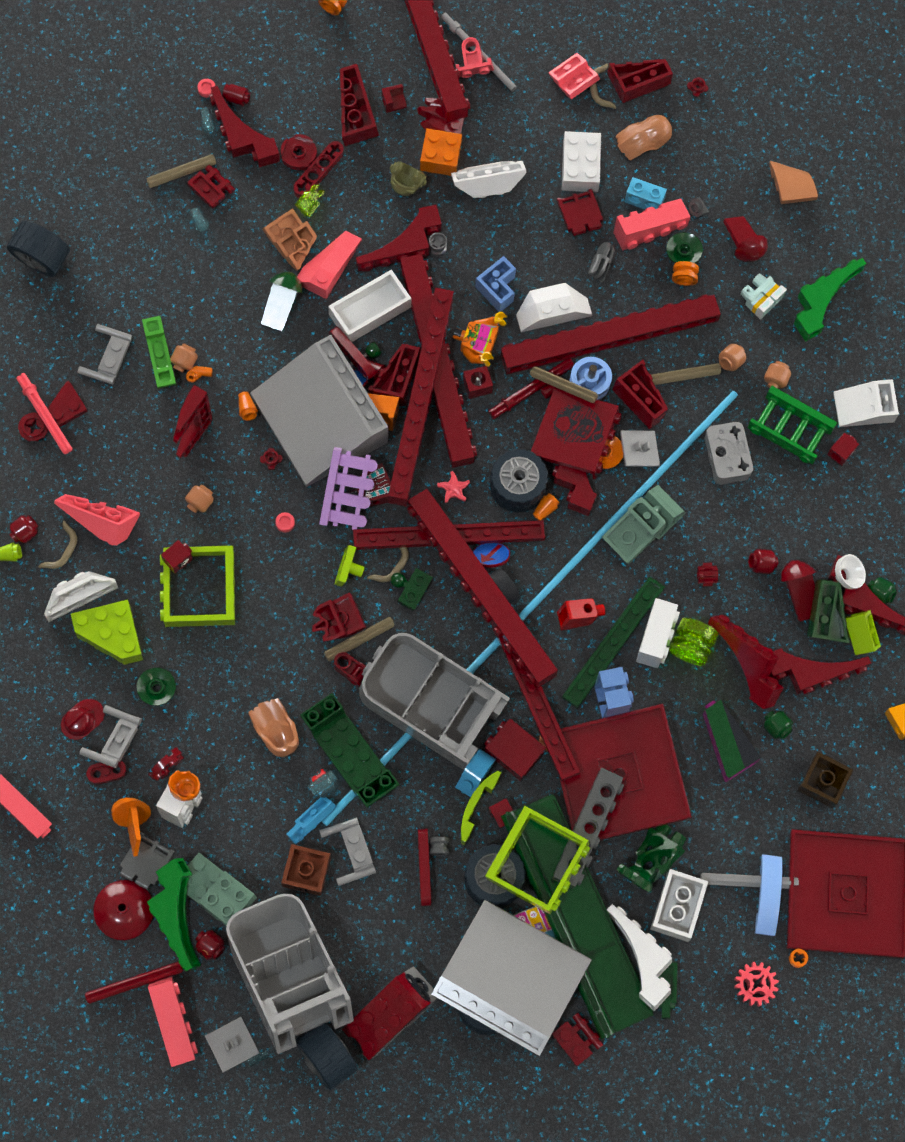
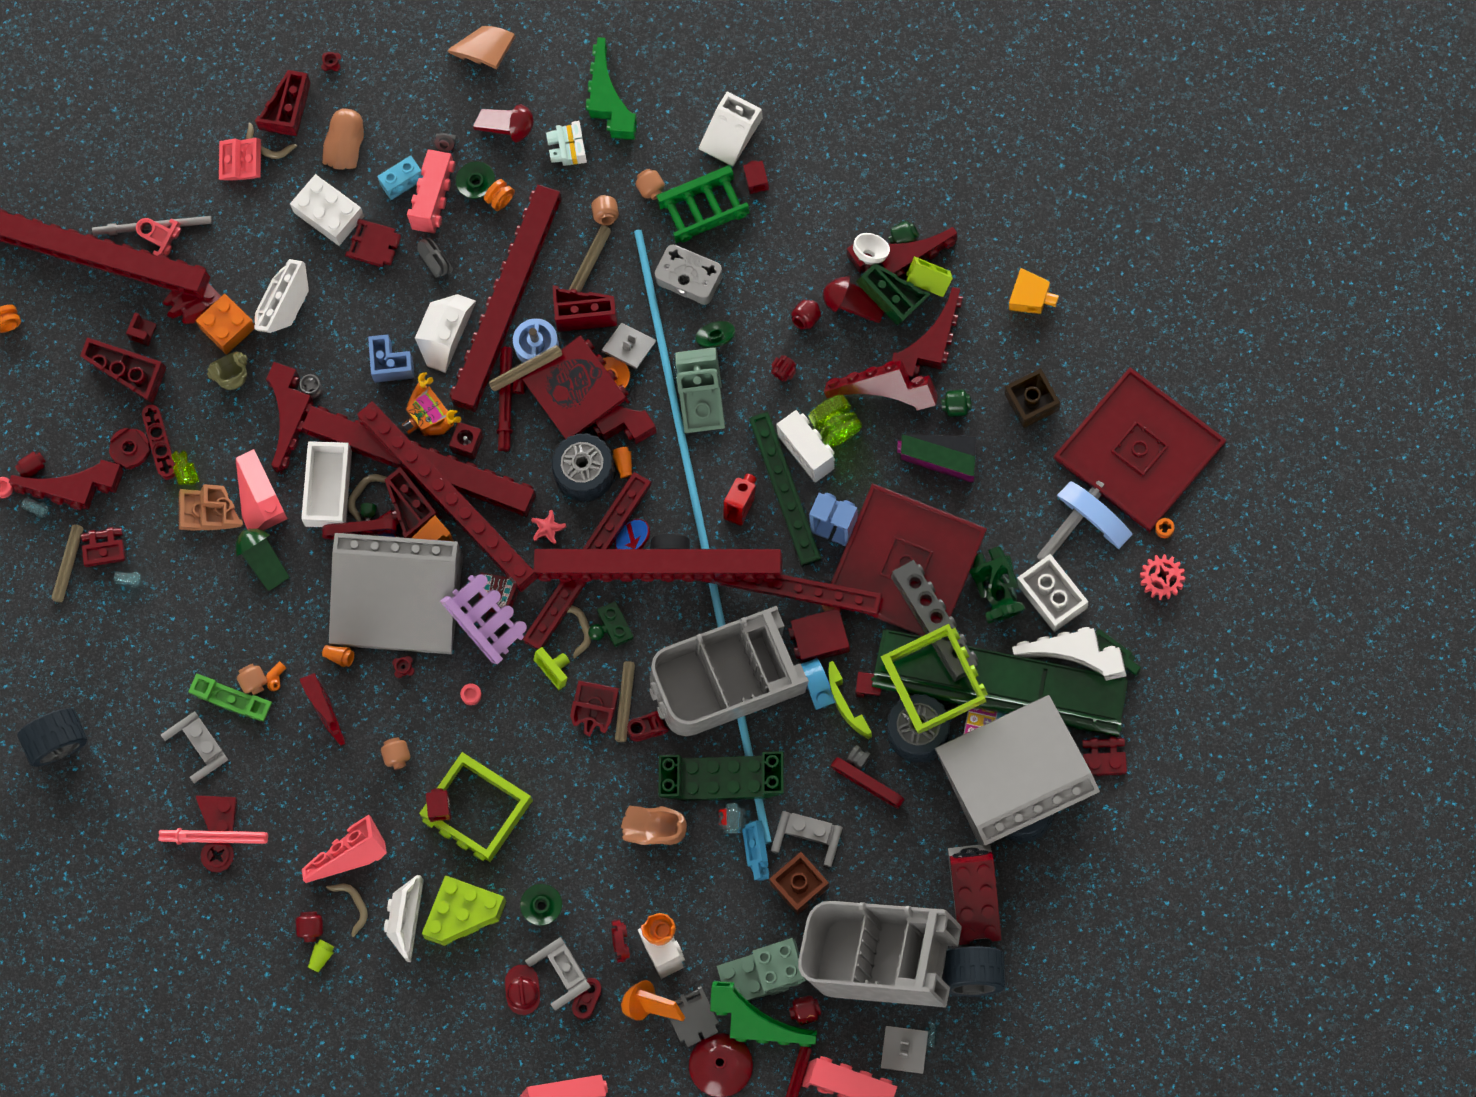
camera: 40 degrees left, 0 degrees up
(382, 333) = (358, 490): none -> dark tan animal
(696, 505) = (715, 334): none -> dark green dish

